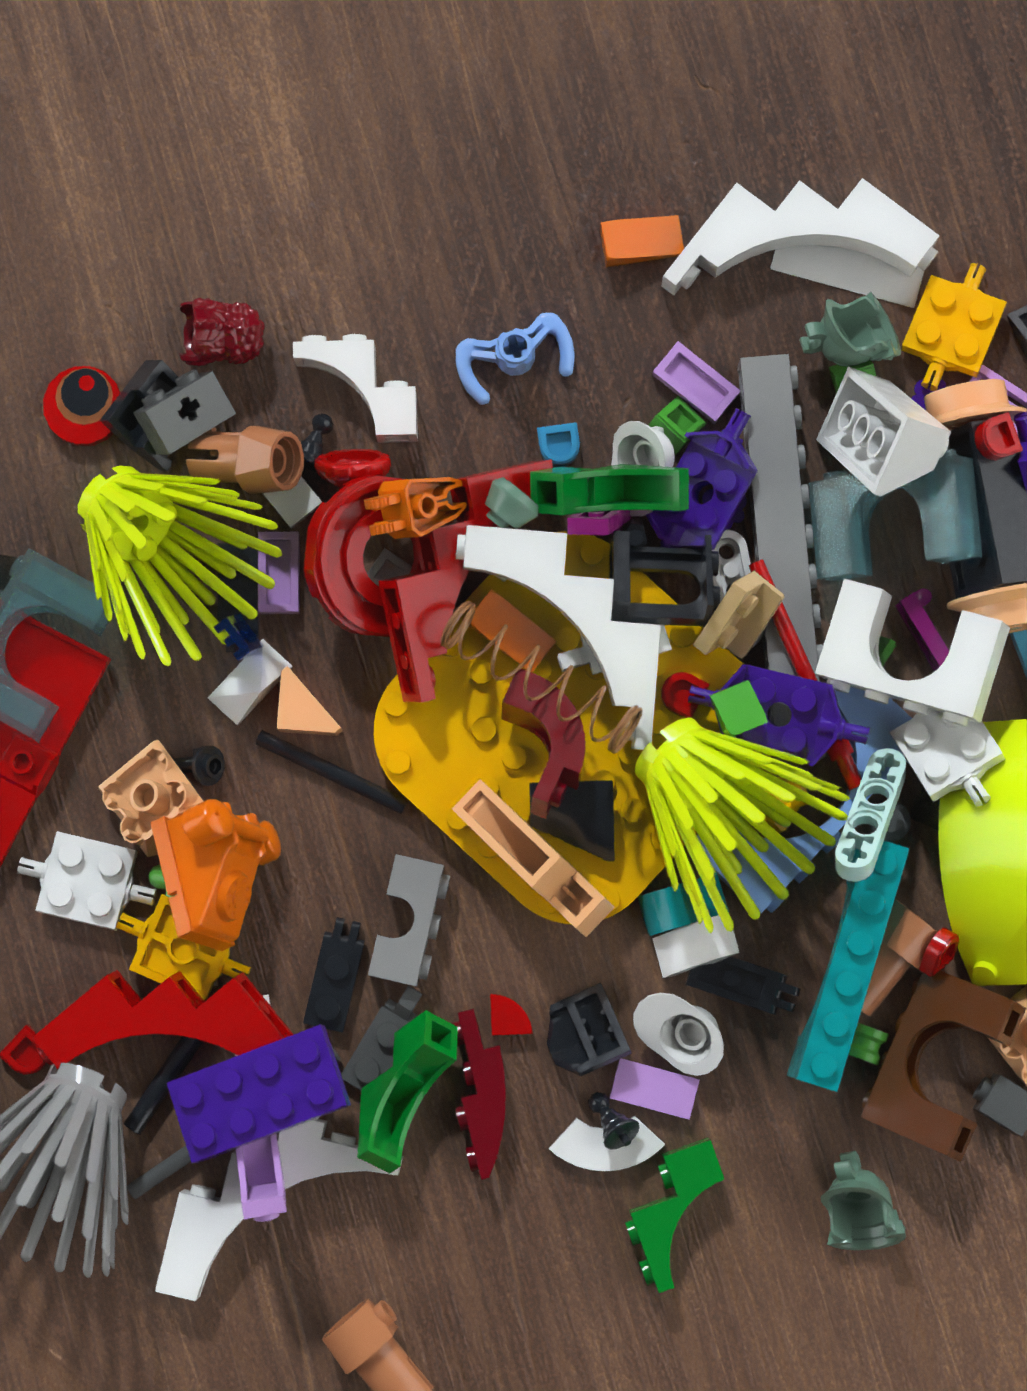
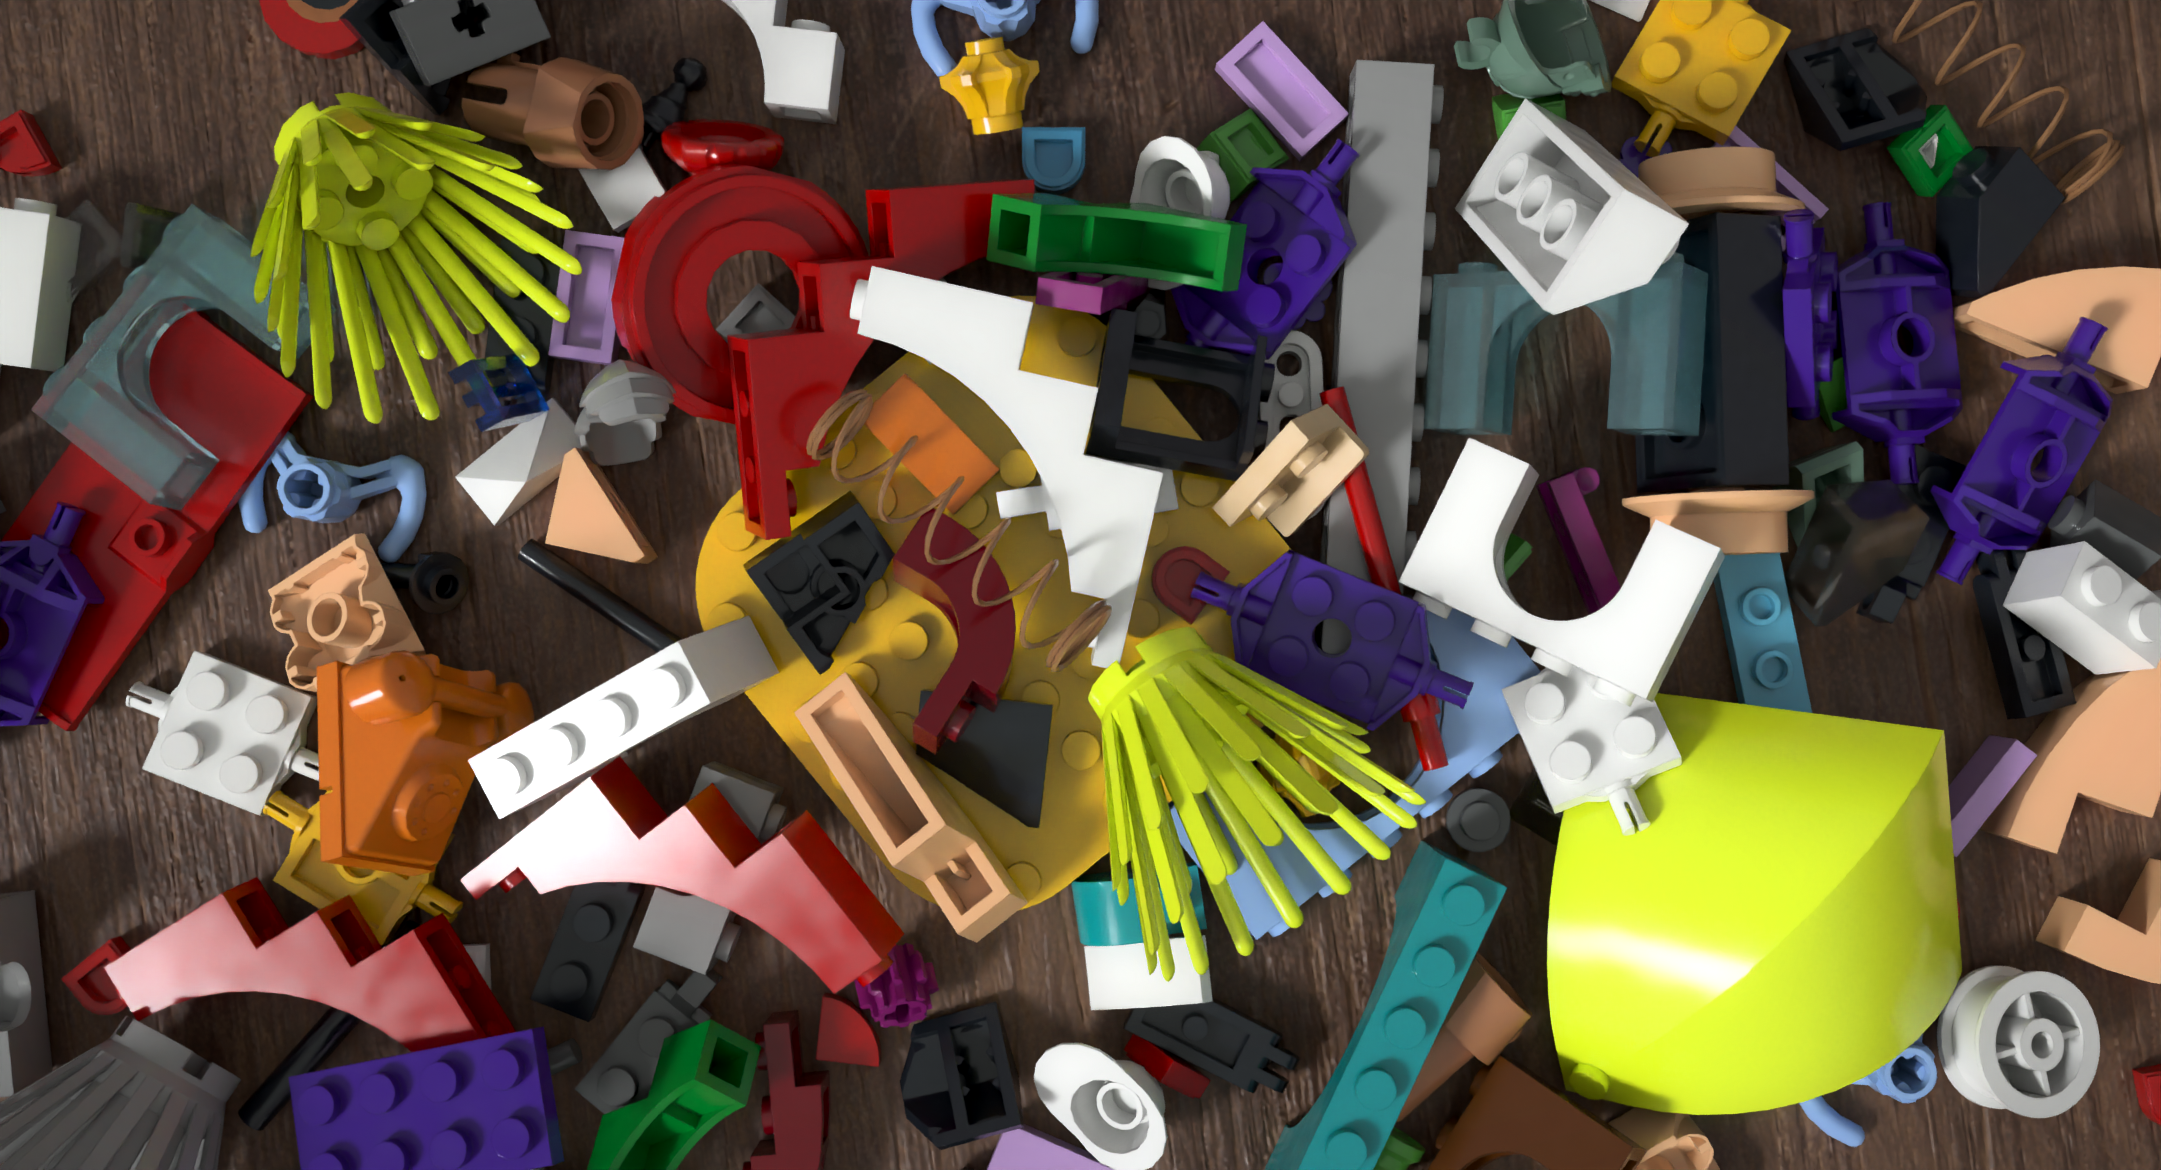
camera: 10 degrees right, 5 degrees up
(131, 718) = (332, 492): none -> light blue piece
(315, 639) = (623, 413): none -> light grey piece
(359, 812) = (622, 714): none -> white arch
(414, 507) = (791, 223): orange hinge -> none
(456, 722) = (822, 576): none -> black slope
(463, 915) = (787, 885): none -> arch
(509, 505) = (951, 243): sand green cone -> none
(514, 404) = (991, 85): none -> yellow rock
(537, 978) = (902, 990): none -> magenta gear
(717, 1005) = (1167, 1067): none -> red tile
(738, 709) = (1268, 624): bright green slope -> none
(868, 813) = (1456, 823): light aqua beam -> none
(939, 952) = (1525, 1044): red tile -> none
(997, 437) = (1755, 245): red tile -> none

